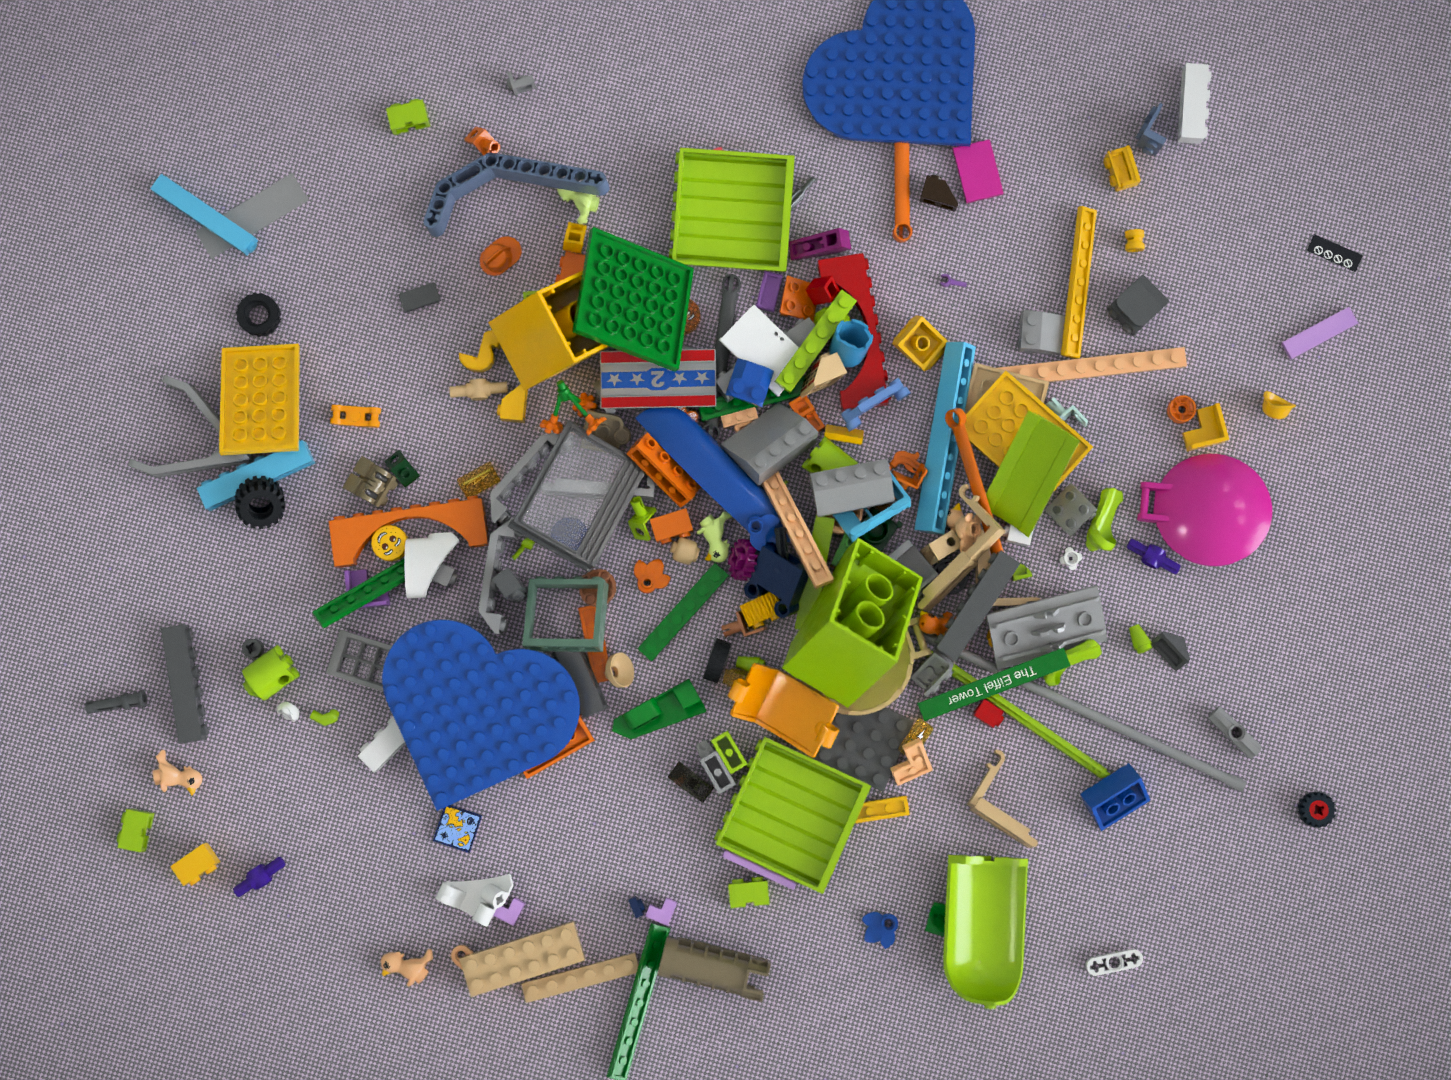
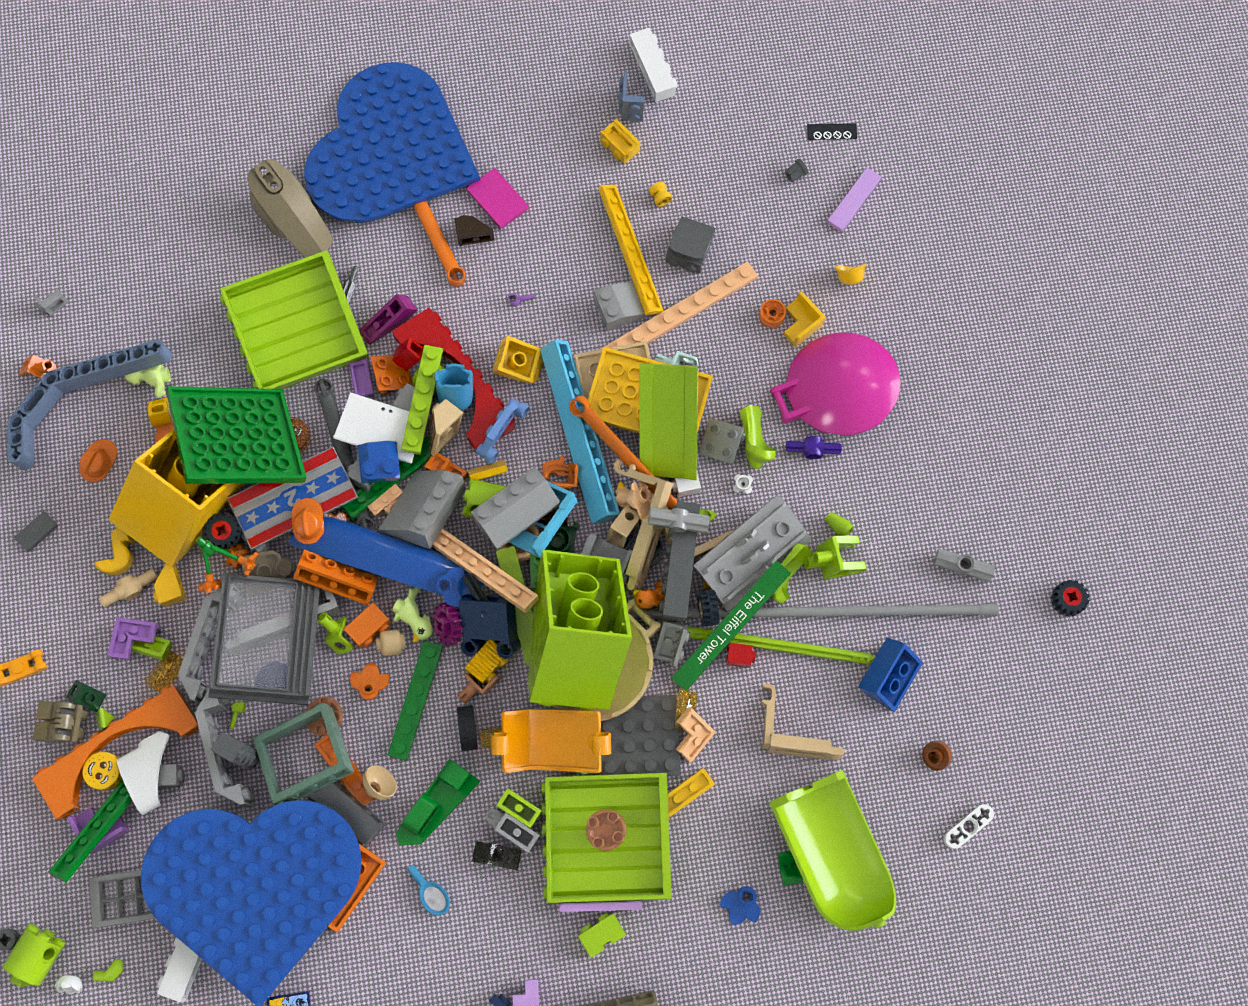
camera: 35 degrees left, 10 degrees down
(408, 497) = (103, 719): none -> lime slope
(462, 430) = (128, 631): none -> medium lavender panel
(475, 450) = (156, 650): none -> lime plate
(582, 385) = (229, 534): none -> black wheel
(620, 787) = (431, 894): none -> piece
(662, 407) = (307, 521): none -> orange piece
(745, 662) = (494, 718): lime cone -> none
(776, 95) = (288, 208): none -> dark tan piece
(795, 808) = (606, 830): none -> nougat dish
(980, 659) = (708, 608): none -> black wheel
(992, 570) = (678, 520): none -> light grey piece
(1114, 666) = (830, 560): none -> lime piece
(1118, 888) = (937, 755): none -> dark orange plate
(1172, 649) = (871, 520): dark grey slope -> none
(1278, 278) = (797, 170): none -> dark grey bush

